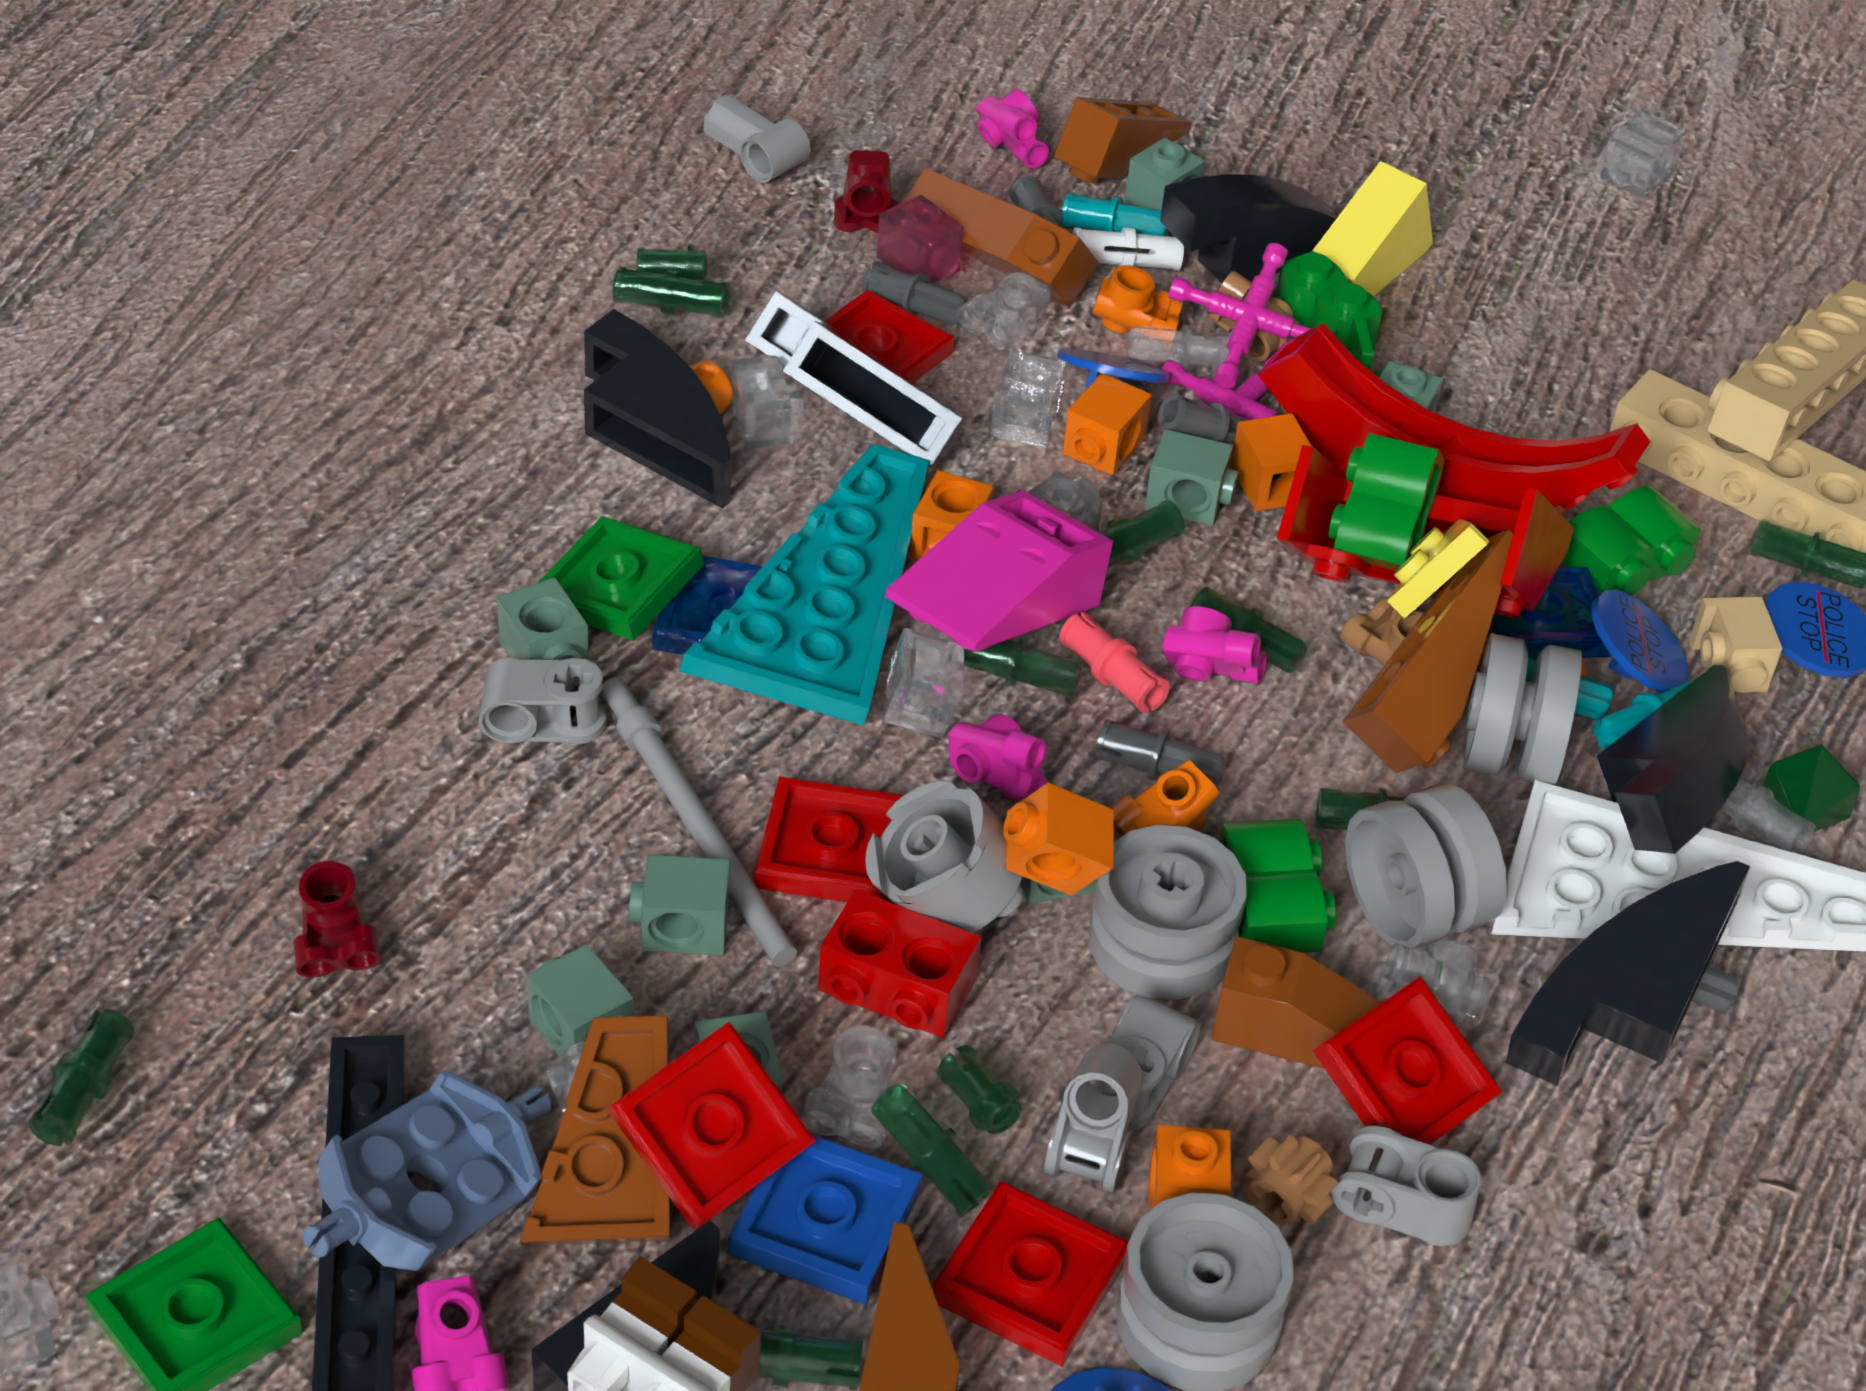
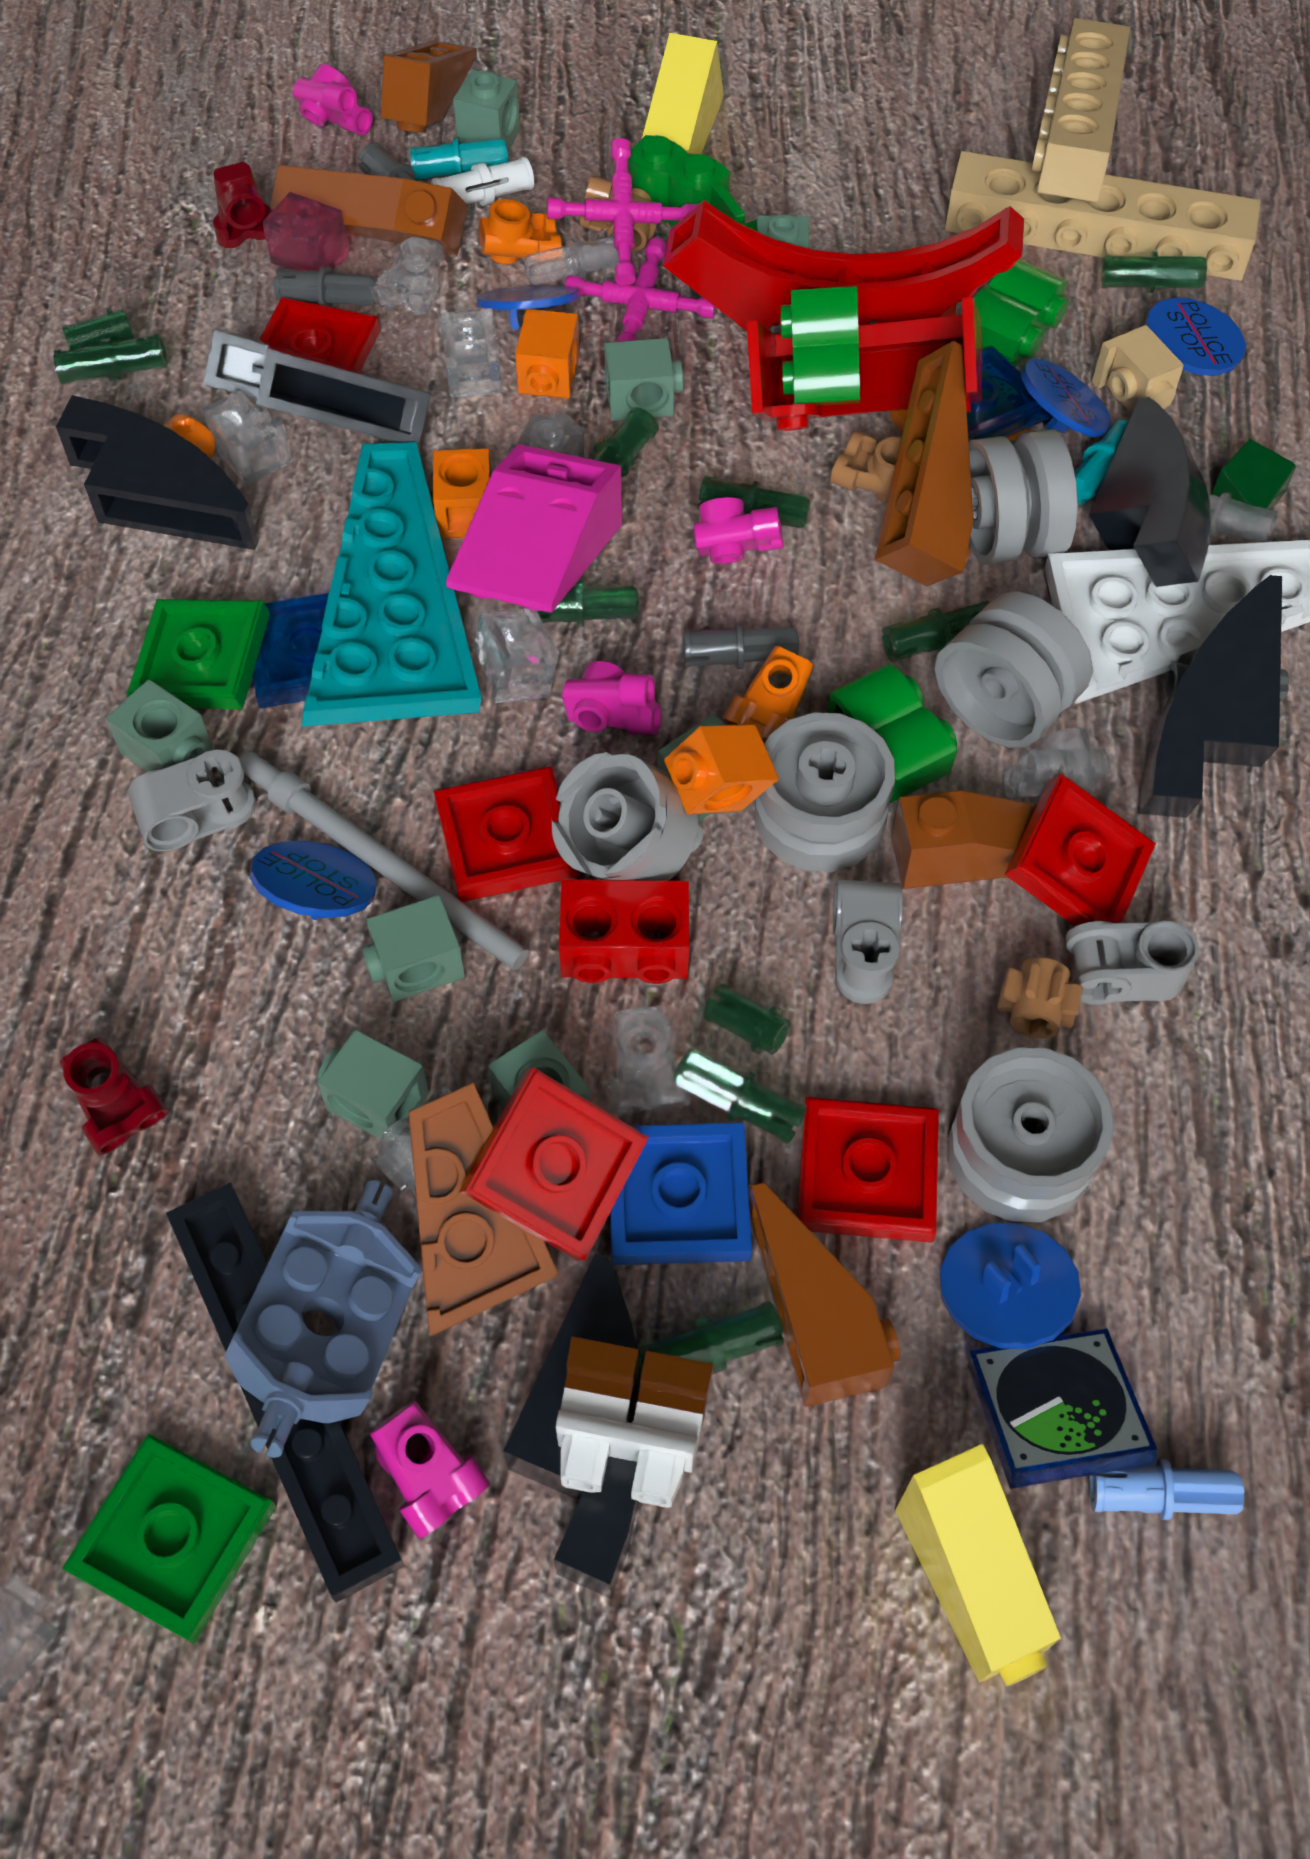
camera: 20 degrees left, 15 degrees up
(619, 808) = (313, 879): none -> blue piece
(763, 146) = (126, 189): light grey piece -> none
(1094, 1128) = (864, 1009): light grey piece -> none
(1114, 662) = (661, 573): coral pin -> none
(1188, 1162) = (961, 1033): orange brick -> none
(1198, 419) = (634, 323): dark grey axle -> none
(1238, 216) = (572, 126): black slope -> none
(1267, 458) = (705, 340): orange brick -> none
(1433, 563) = (895, 387): light yellow wing -> none

